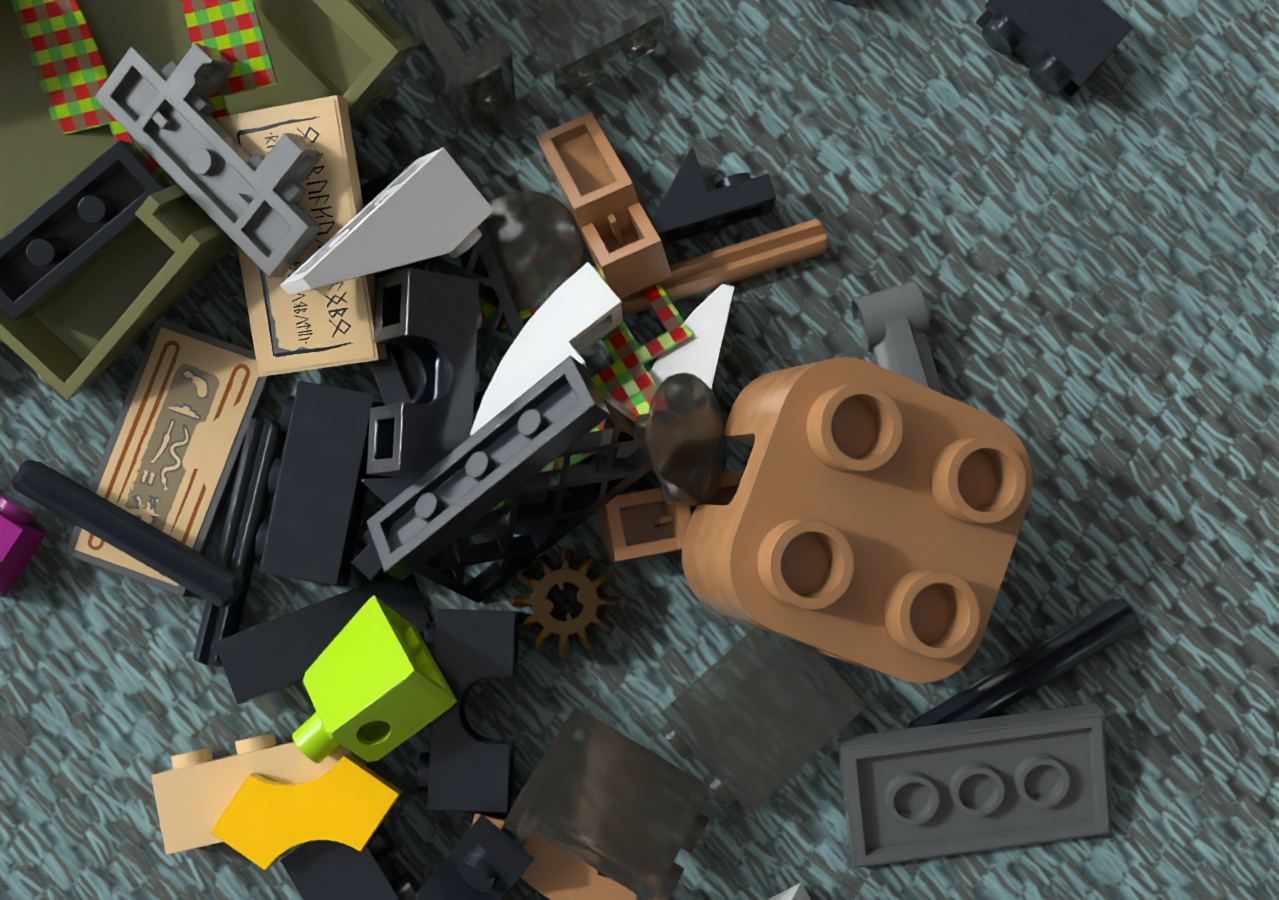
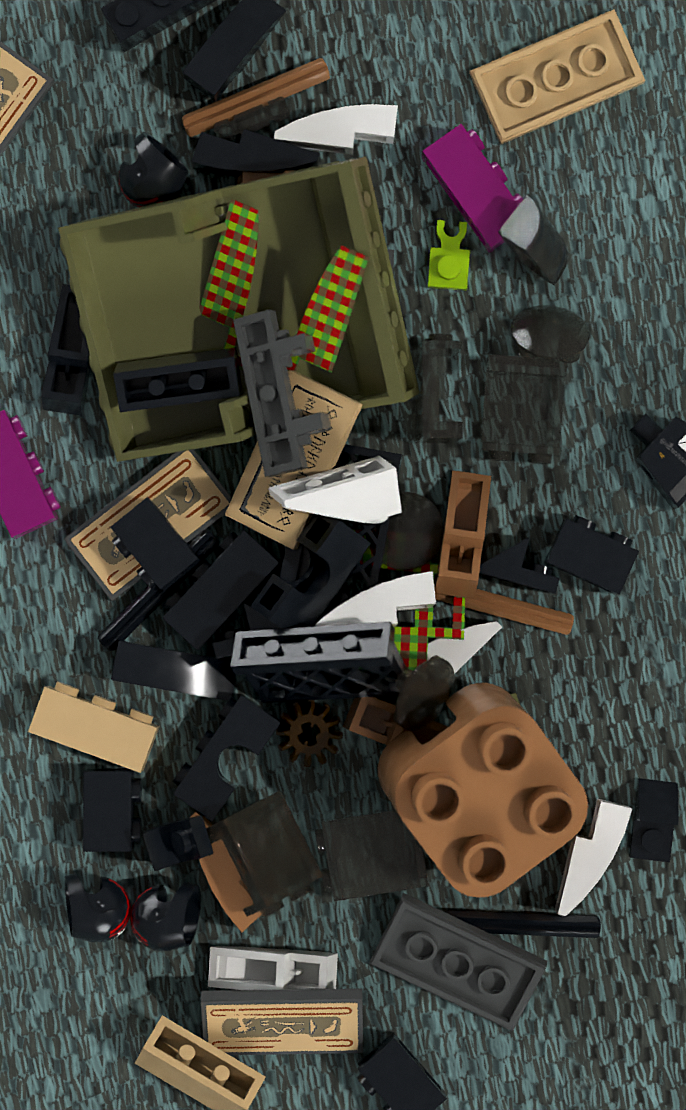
camera: 30 degrees right, 5 degrees up
(128, 533) = (105, 551): black axle -> none
(187, 478) = (154, 545): none -> black brick
(275, 815) = (130, 763): yellow tile -> none
(371, 687) = (185, 716): lime torso -> none
(792, 123) = (592, 555): none -> black brick
(896, 332) = (572, 705): dark grey piece -> none
(1059, 522) = (591, 855): none -> white slope
(1104, 419) = (654, 820): none -> black slope

